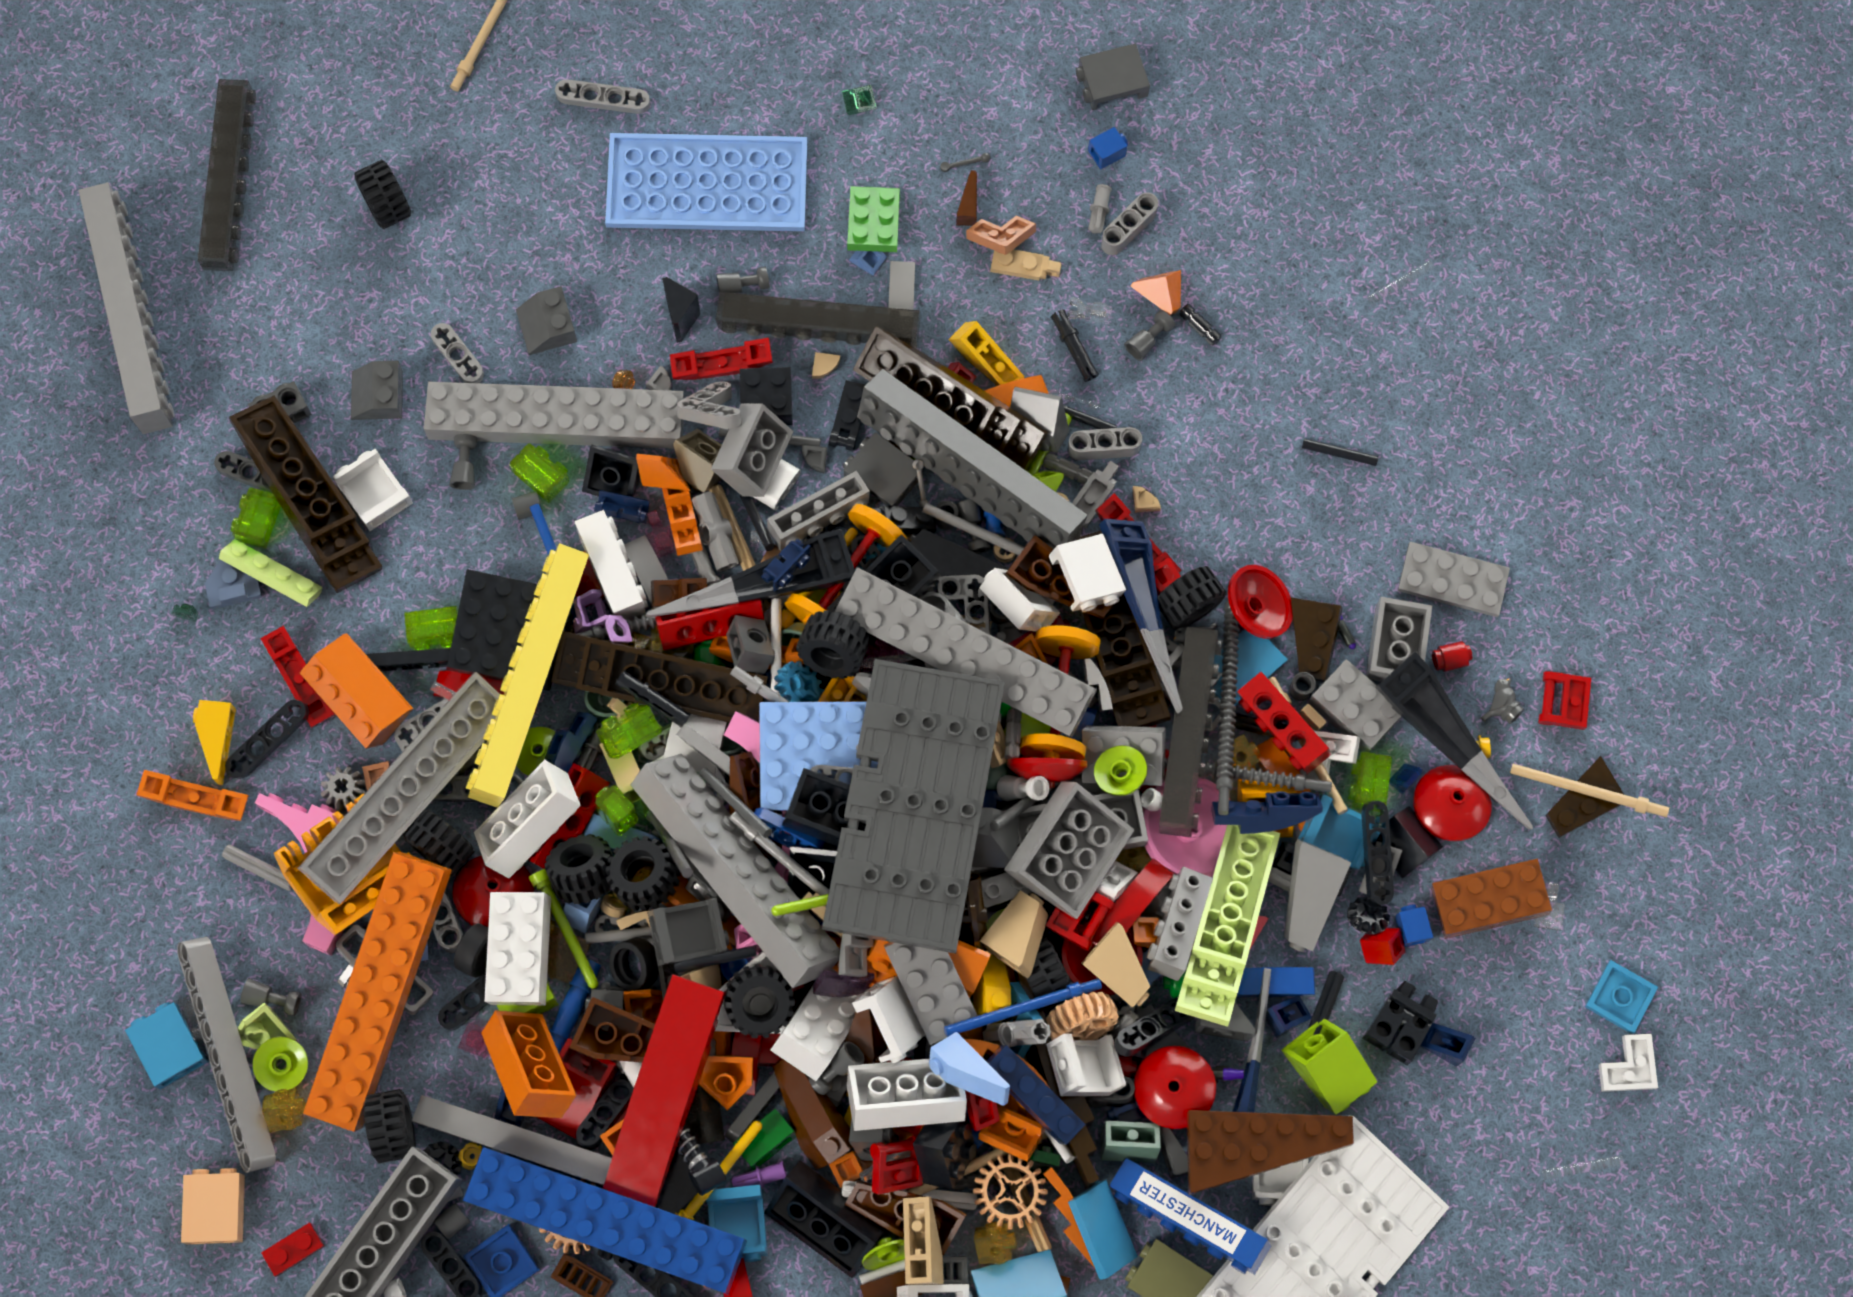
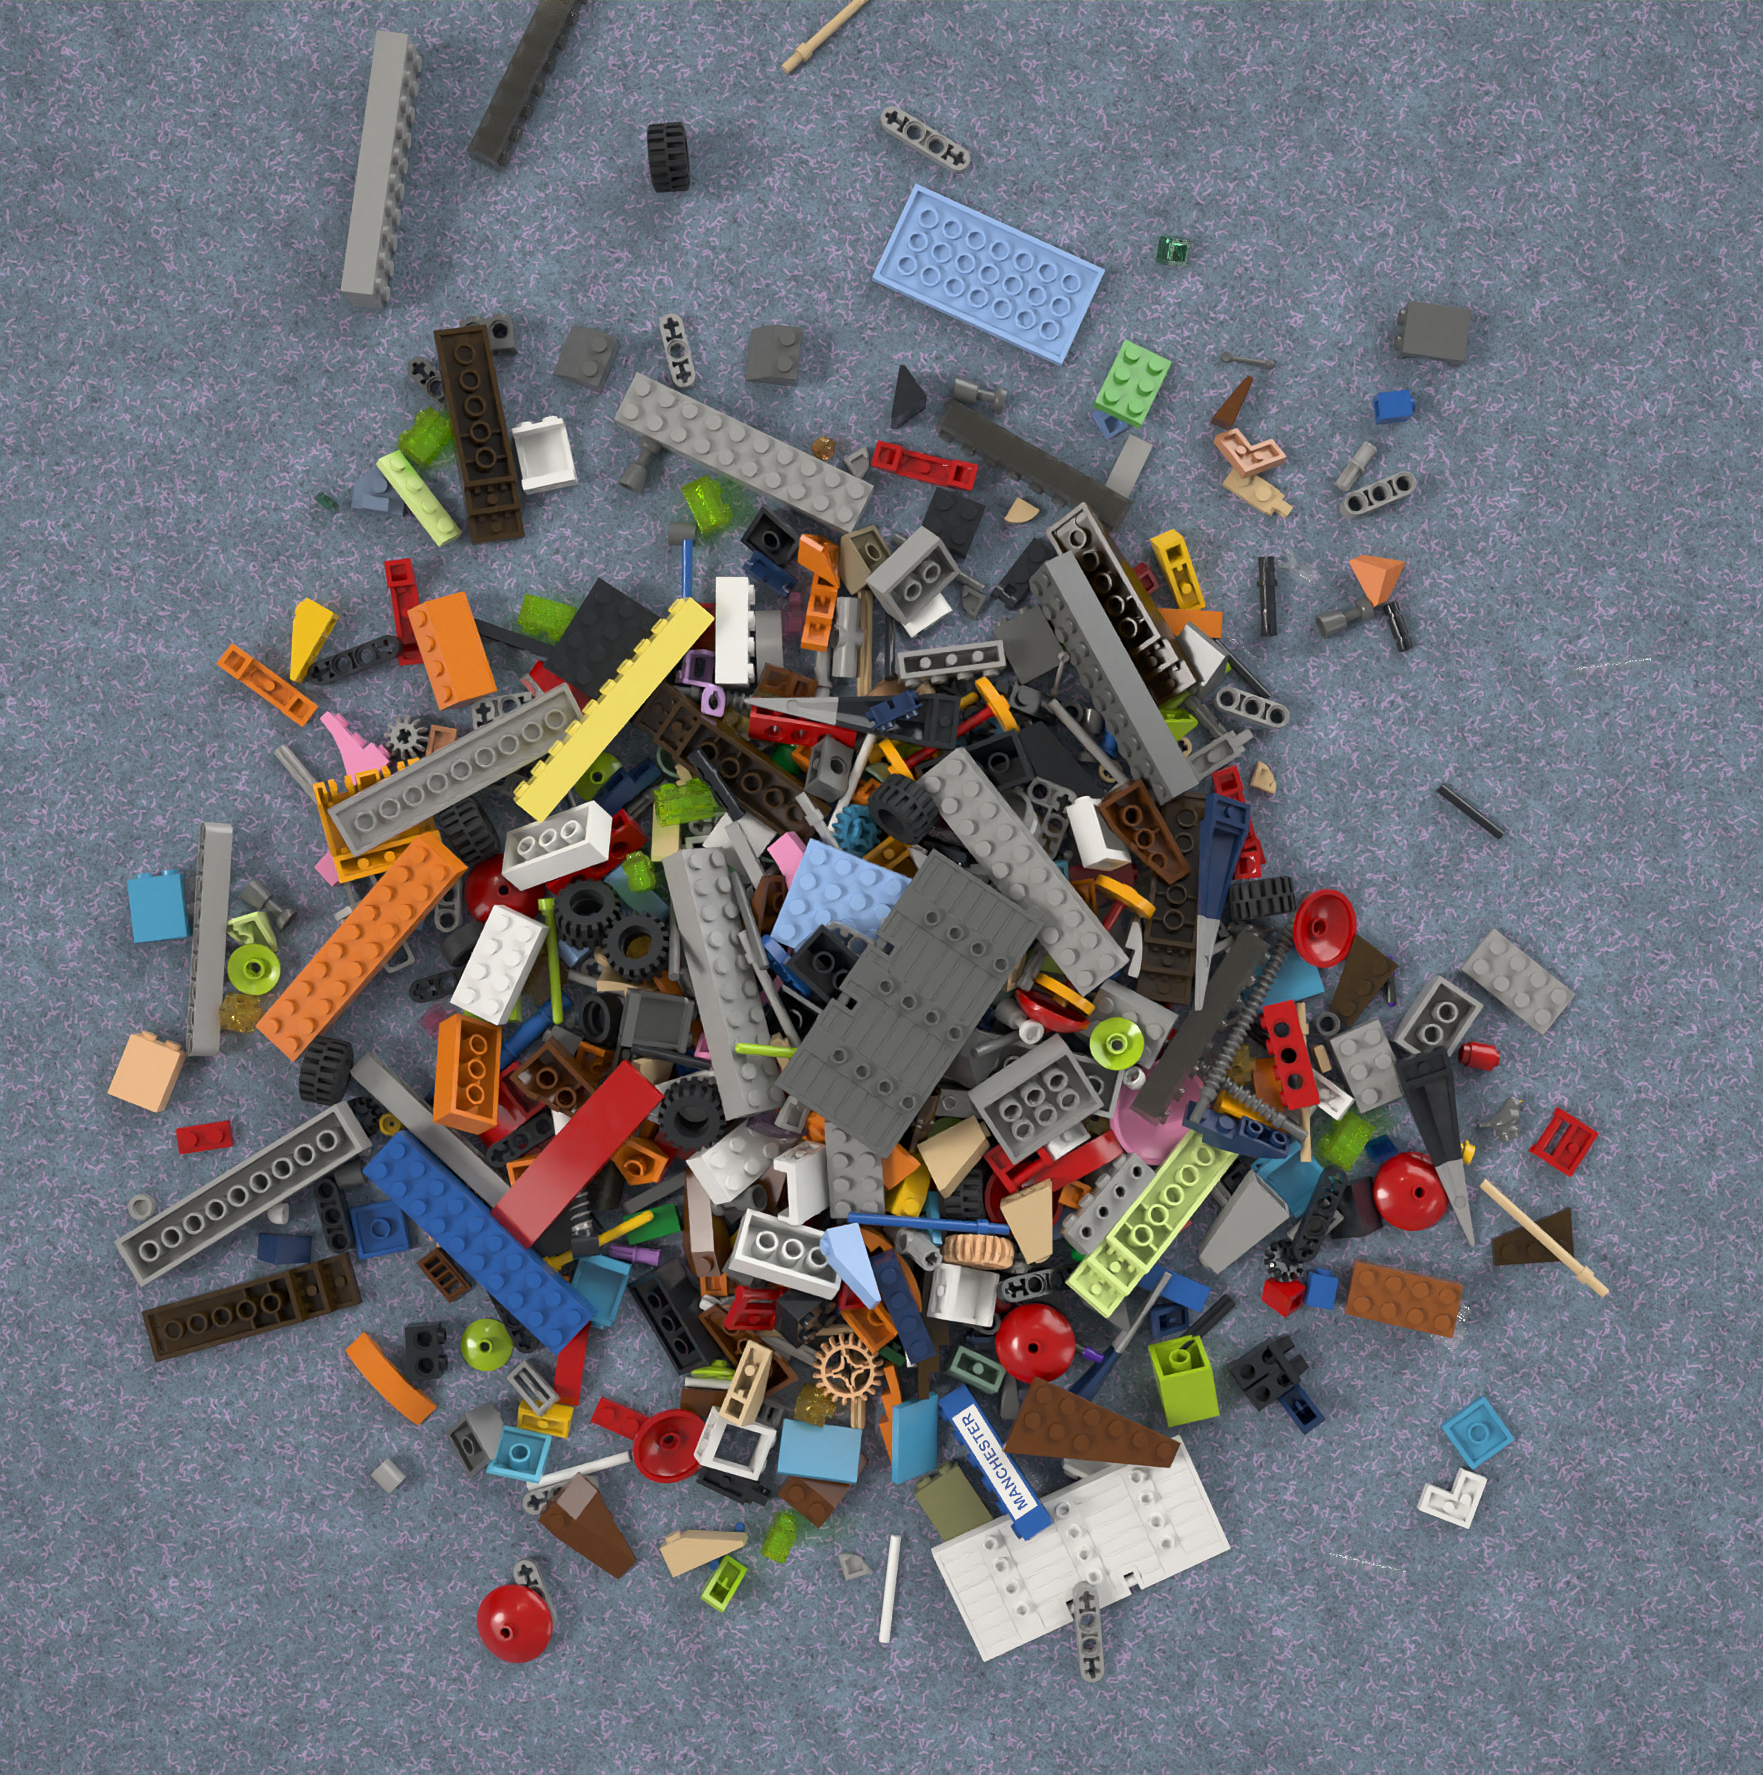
camera: 25 degrees right, 15 degrees up
(706, 407) = (884, 508): light grey beam -> none
(1089, 572) = (1175, 839): white panel -> none

